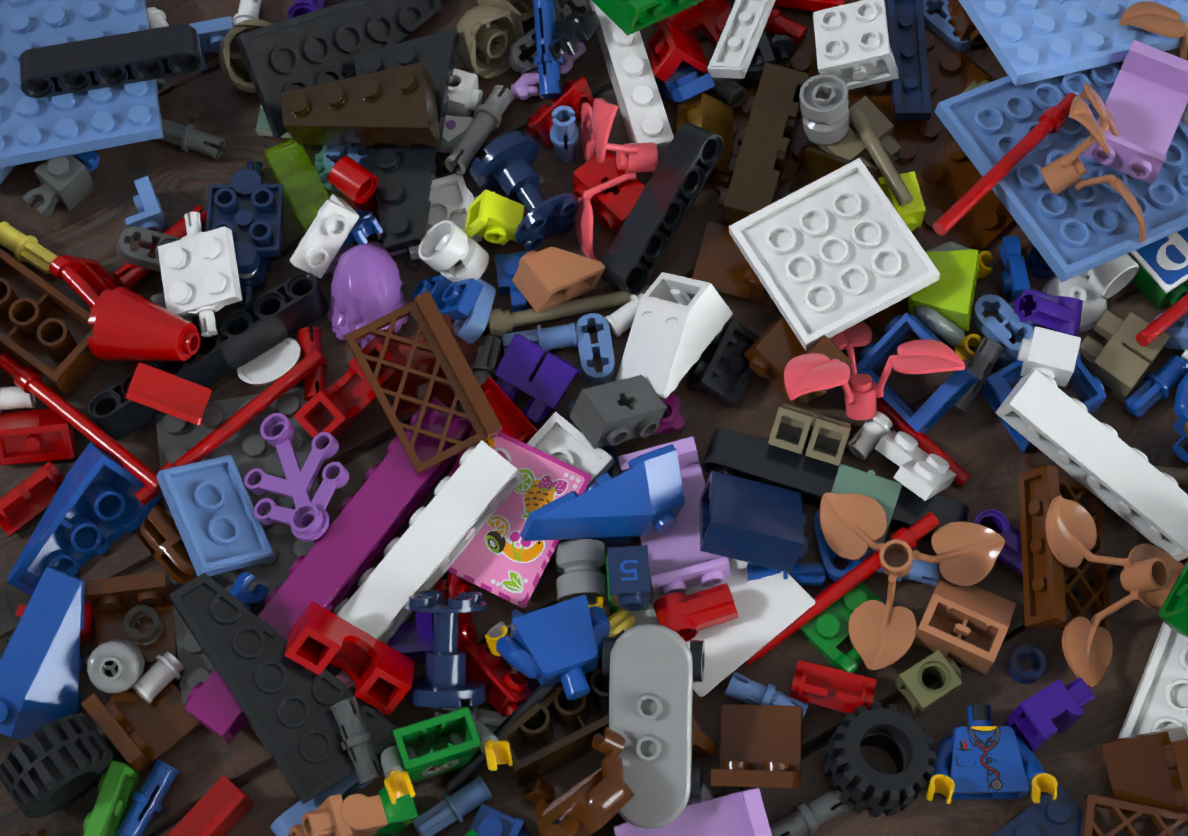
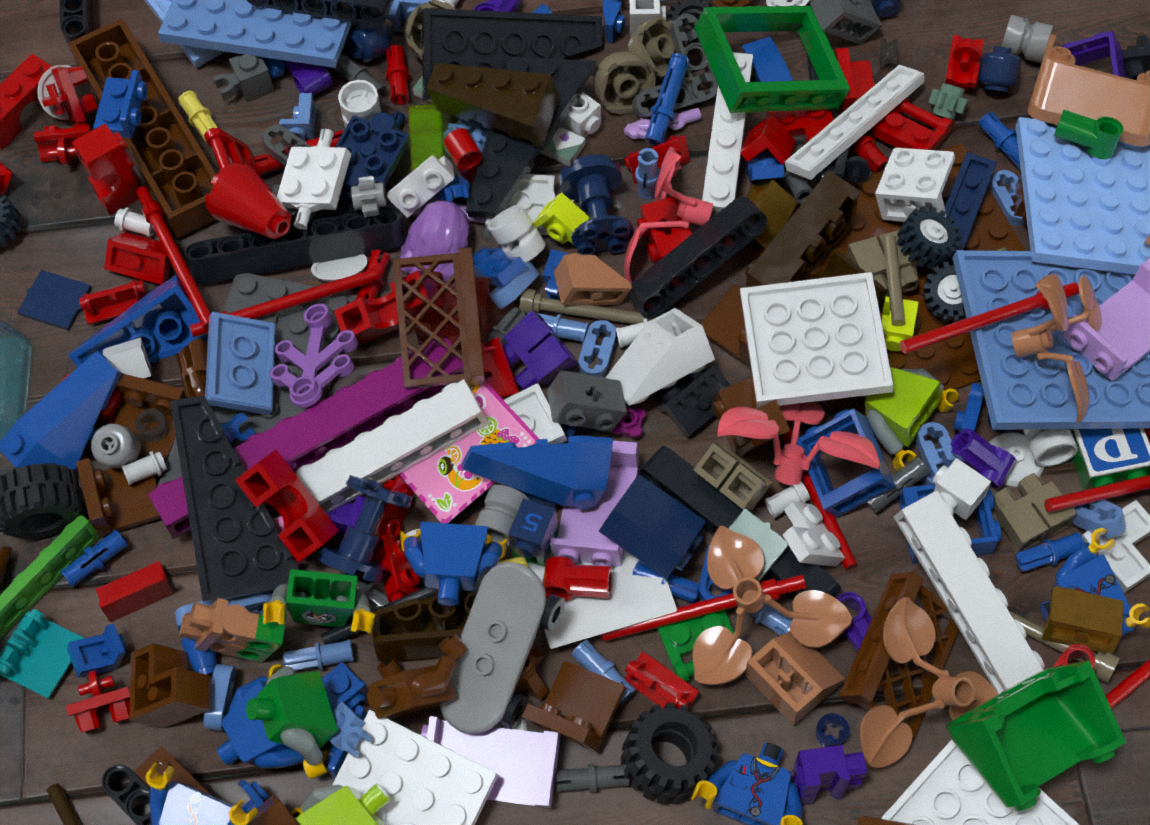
camera: 25 degrees right, 5 degrees down
(81, 558) = (129, 358): none -> white brick
(133, 159) = (309, 77): none -> dark purple piece
(168, 393) = (248, 259): red panel -> none
(182, 94) = (368, 41): none -> dark blue head
(206, 165) = (358, 99): none -> white wheel
(231, 119) = (397, 75): none -> red pin
(272, 271) = (368, 196): none -> light grey gear
(357, 740) = (263, 568): dark grey pin -> none
(486, 119) = (592, 143): light grey pin -> none
(574, 30) = (691, 96): black plate -> none
(824, 109) = (861, 224): light grey wheel -> none
(896, 97) = (929, 237): none -> black wheel
(917, 694) = (734, 725): olive brick -> none
(936, 151) = (943, 294): none -> black wheel

